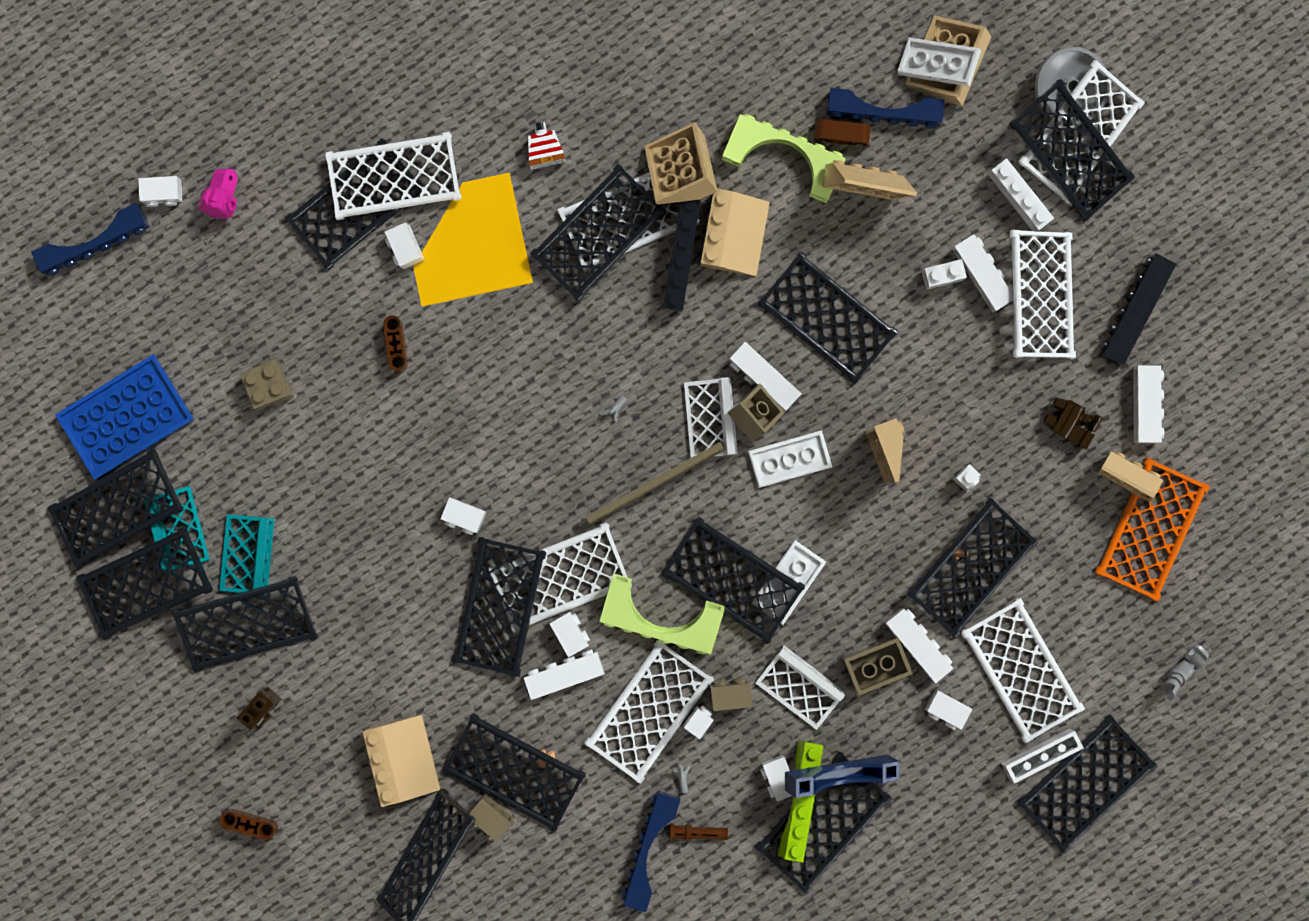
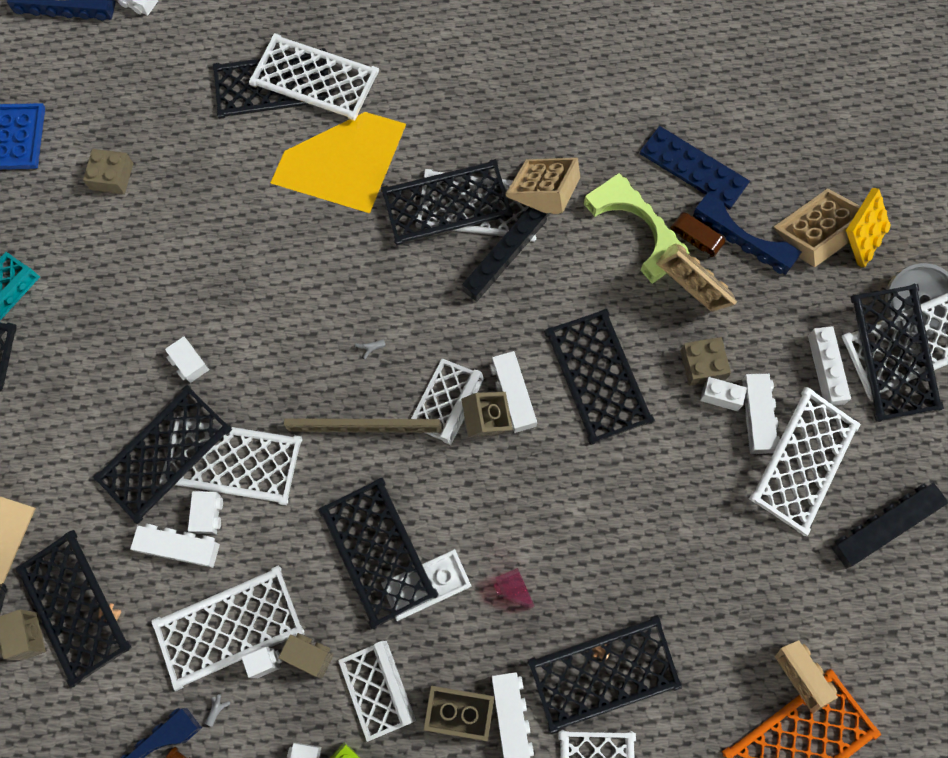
camera: 30 degrees right, 15 degrees down
(218, 199) = (173, 22): dark pink piece -> none
(400, 347) = (228, 196): reddish brown beam -> none
(404, 246) = (286, 129): white brick -> none
(544, 148) = (444, 118): torso -> none
(696, 635) = (261, 520): yellowish green arch -> none
(735, 233) = (558, 262): tan slope -> none
(790, 459) = (494, 475): white tile -> none
(802, 63) = (694, 167): none -> dark blue plate
(862, 544) = (513, 589): none -> clear pink slope
(887, 446) = (588, 499): tan slope -> none
(913, 253) = (705, 360): none -> dark tan brick
(939, 61) = (812, 220): white tile -> none
(967, 478) = (646, 585): white brick -> none
(992, 43) = (868, 227): none -> yellow plate
(1067, 419) = (768, 589): dark brown hips -> none
(1147, 404) = (857, 618): white brick -> none

